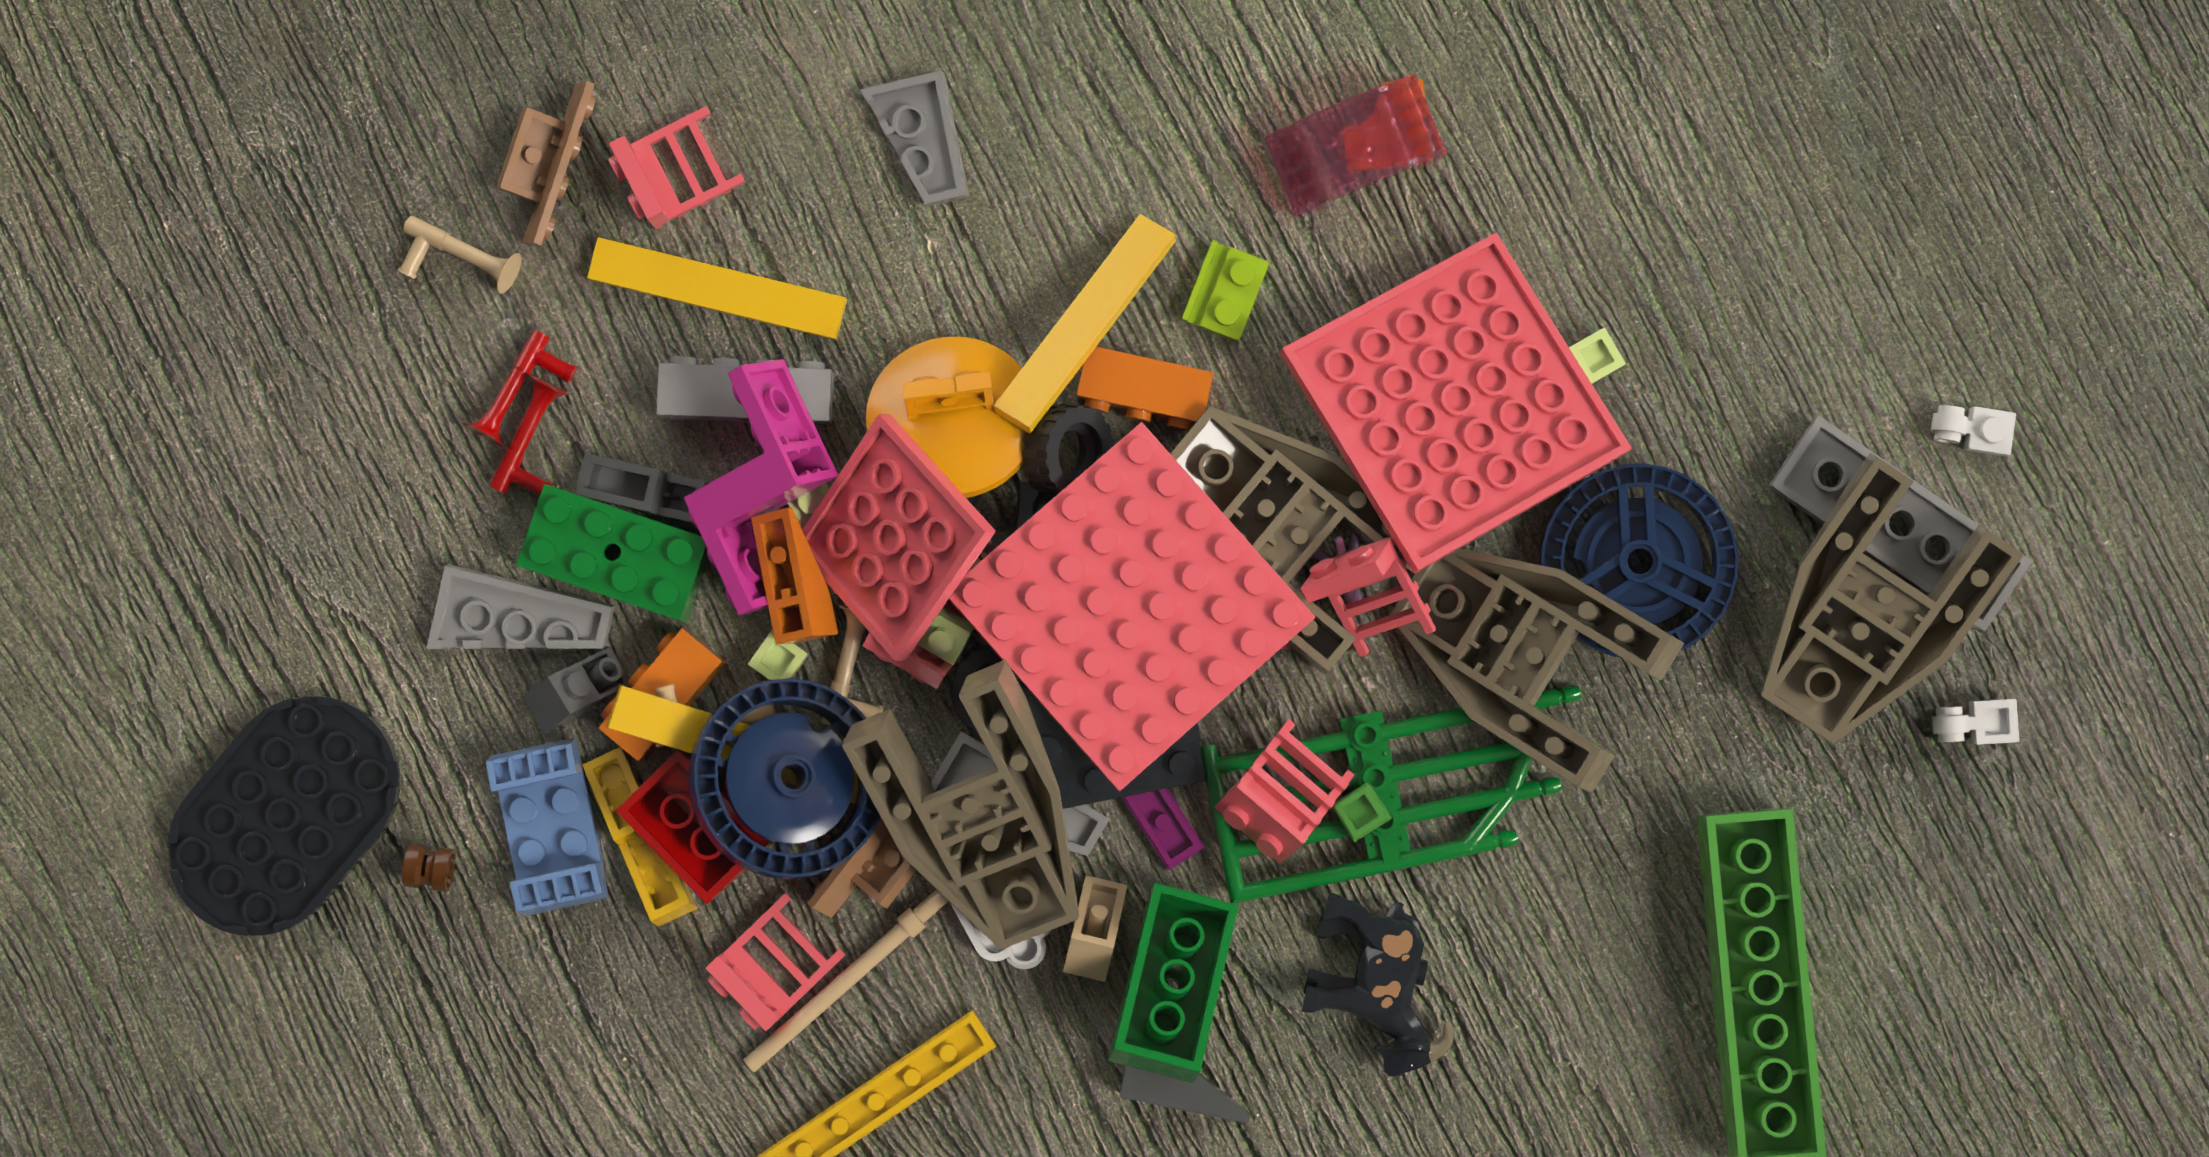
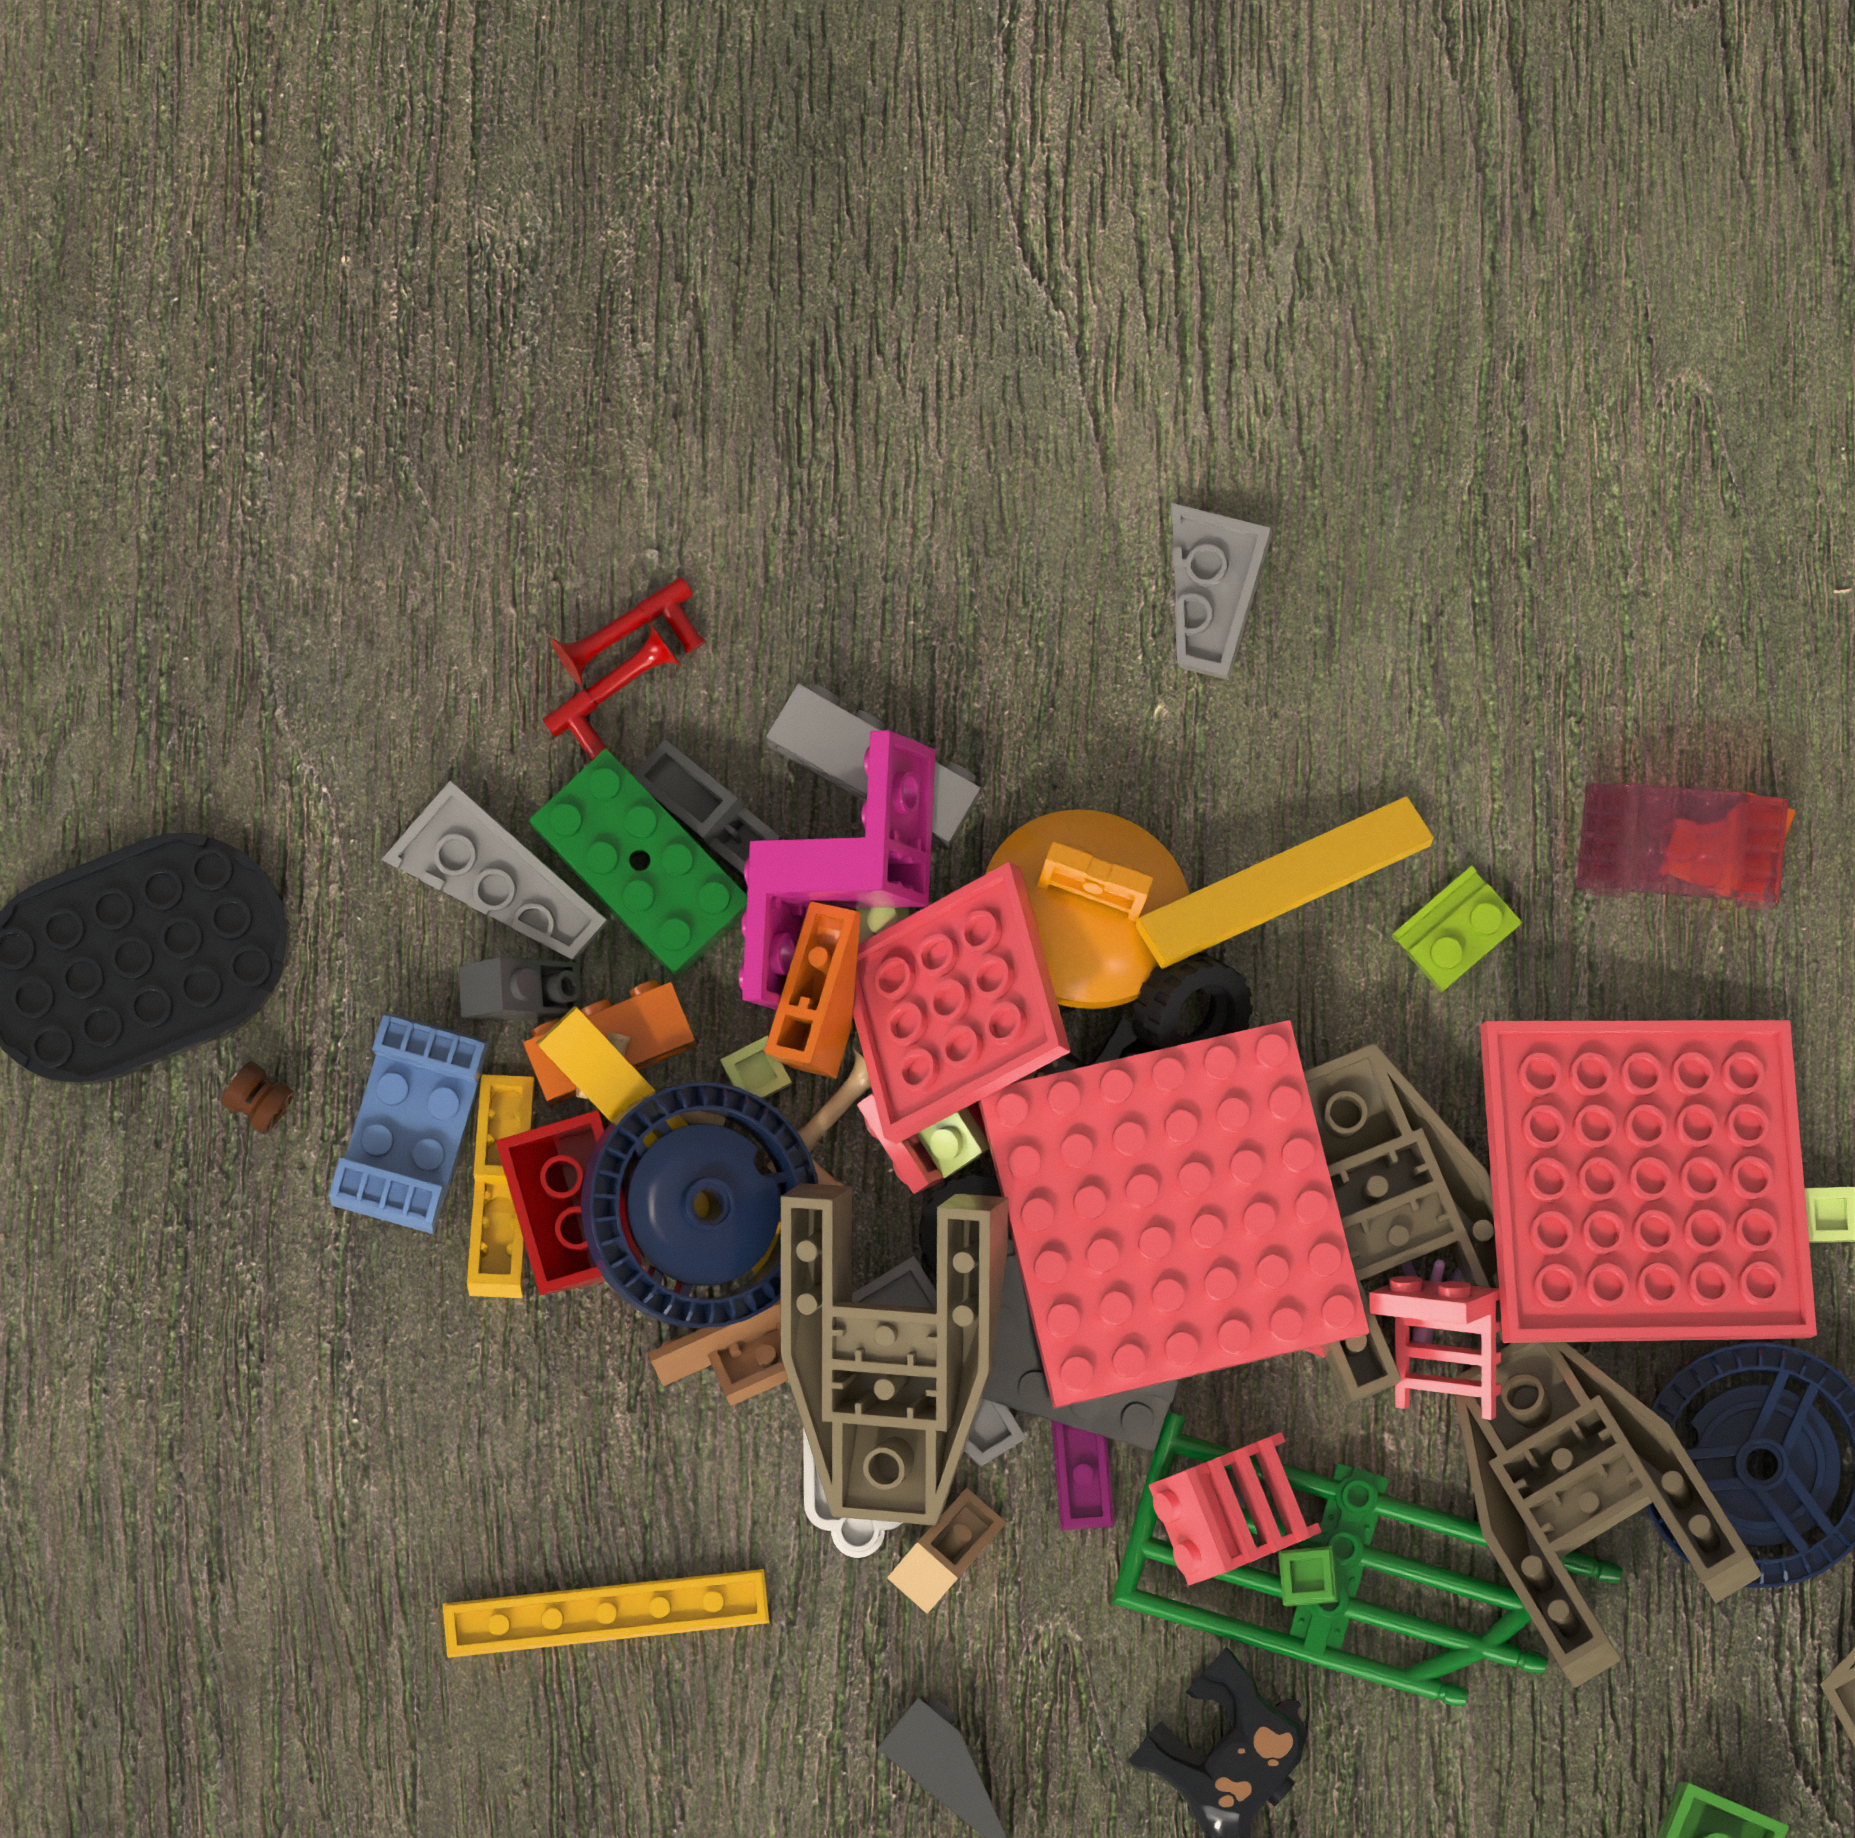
camera: 30 degrees right, 5 degrees down
(501, 269) = (618, 415): tan piece -> none
(540, 158) = (786, 397): medium nougat bracket -> none
(651, 188) = (889, 490): coral plate -> none
(717, 288) = (902, 637): yellow tile -> none
(752, 985) = (538, 1409): coral plate -> none
(910, 924) = (746, 1437): tan bar -> none
(1144, 388) = (1312, 987): orange brick -> none
(1182, 941) = (1032, 1612): green brick -> none

